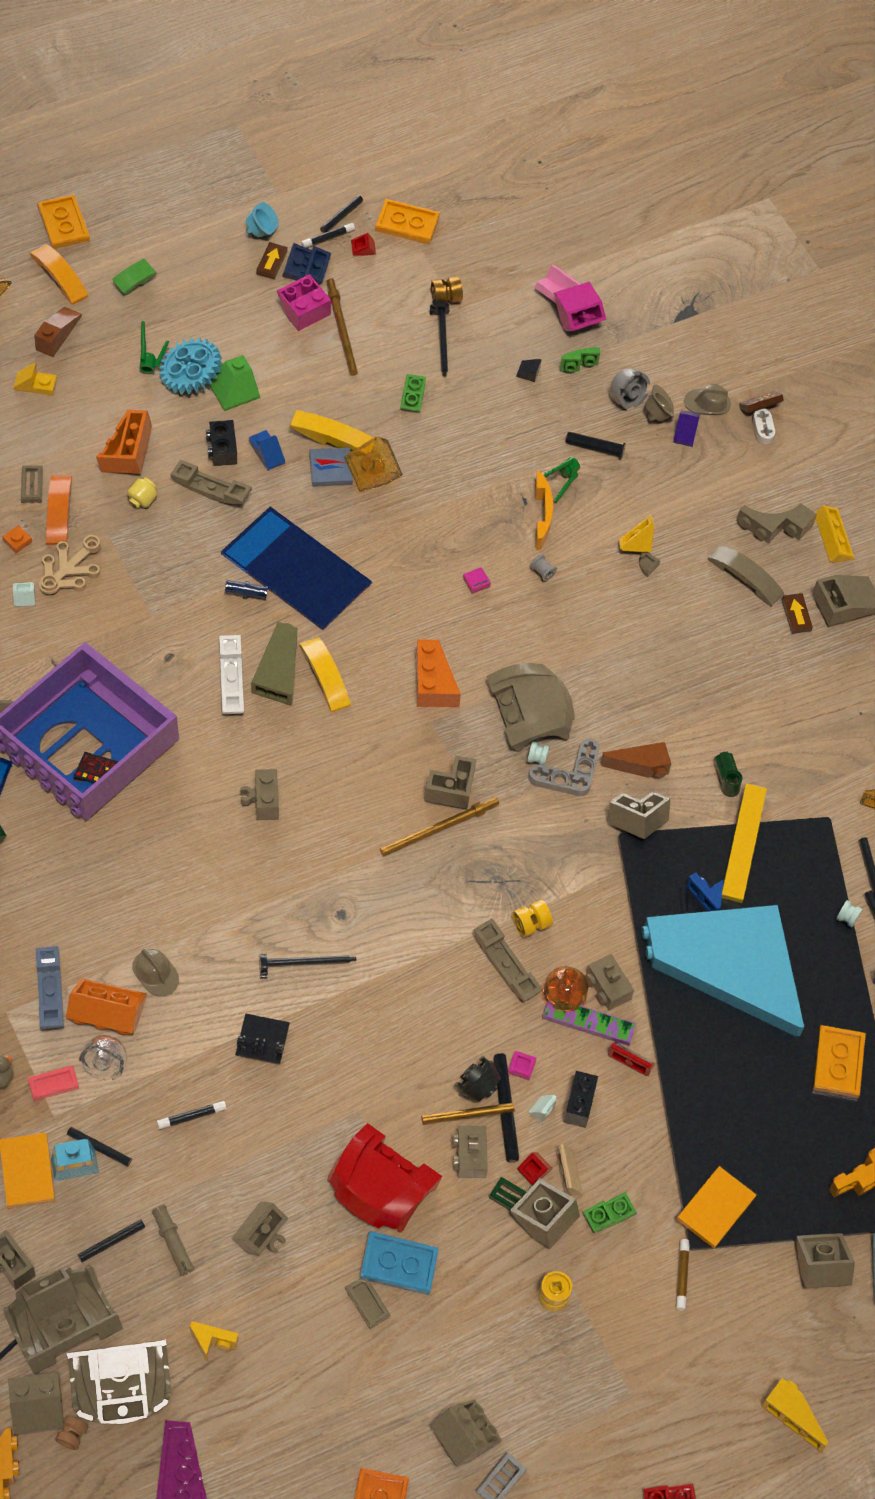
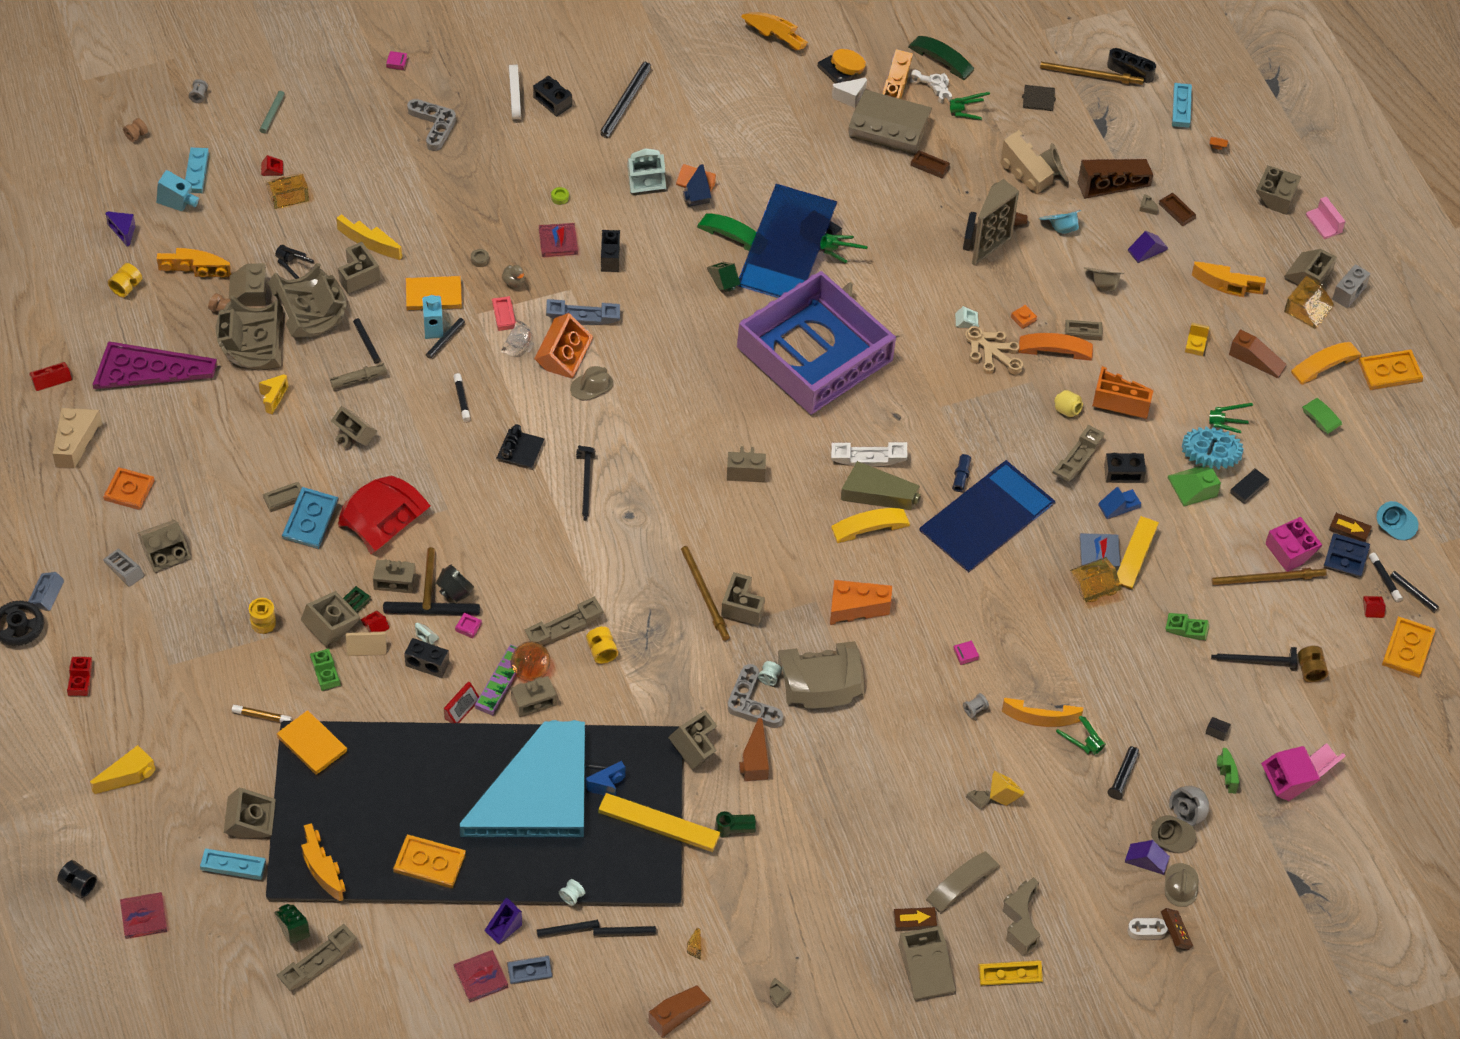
camera: 100 degrees right, 5 degrees down
(93, 767) = (784, 349): piece -> none
(229, 340) = (1249, 486): none -> black tile

